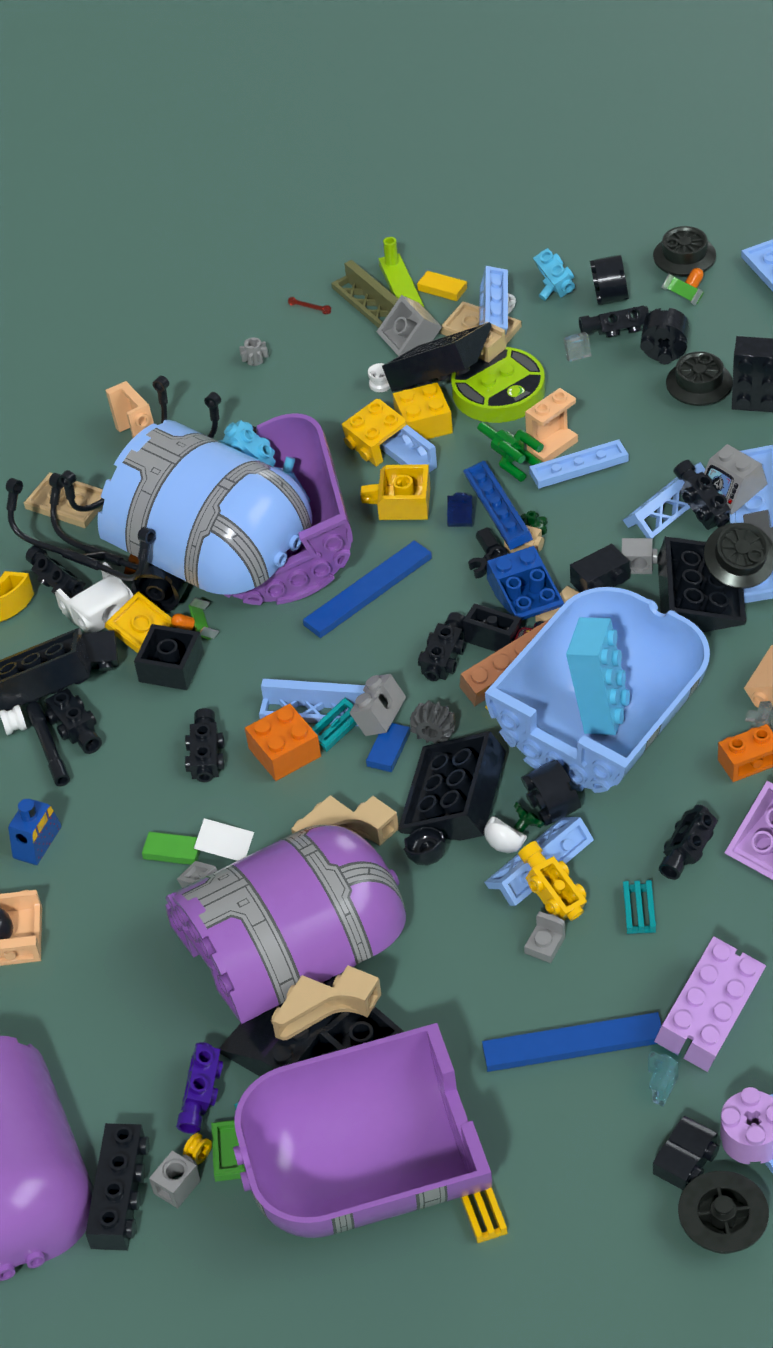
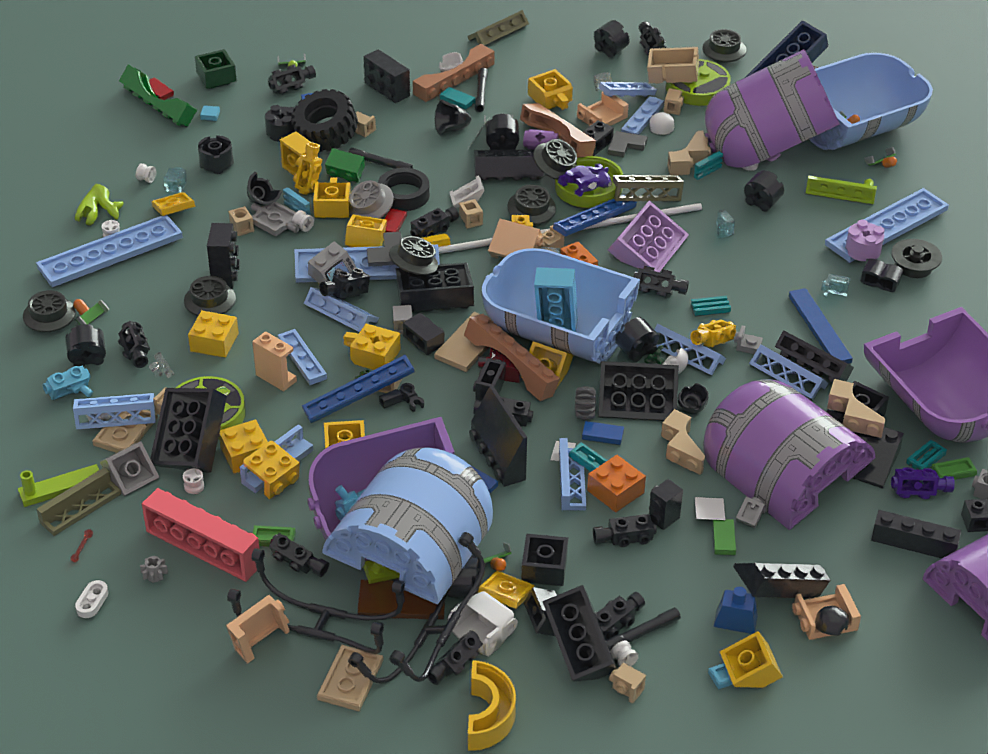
camera: 105 degrees left, 5 degrees down
(62, 872) = (783, 579): none -> black slope
(104, 1057) = (915, 534): none -> black brick
(197, 1148) = (968, 478): yellow bush -> none
(222, 778) = (665, 504): none -> black brick
(227, 312) = (89, 602): none -> white plate
(244, 439) = (336, 506): medium azure brick -> none
(283, 374) = (200, 534): none -> coral brick
(370, 625) = (500, 439): none -> black slope
(370, 706) = (585, 430): light grey brick -> none
(442, 285) = (65, 458): yellow tile -> none
(459, 510) = (358, 412): clear blue bracket -> none
(472, 977) = (793, 368): none -> light blue fence
(487, 1004) = (813, 356): none -> black brick
(512, 449) = (290, 389): green plant -> none
(523, 583) = (441, 371): blue slope -> none
(580, 525) = (373, 346): none -> yellow hinge
(627, 384) = (213, 334): none -> yellow brick
(665, 335) = (162, 311): black brick -> none
(710, 1003) = (781, 265): lavender piece -> none

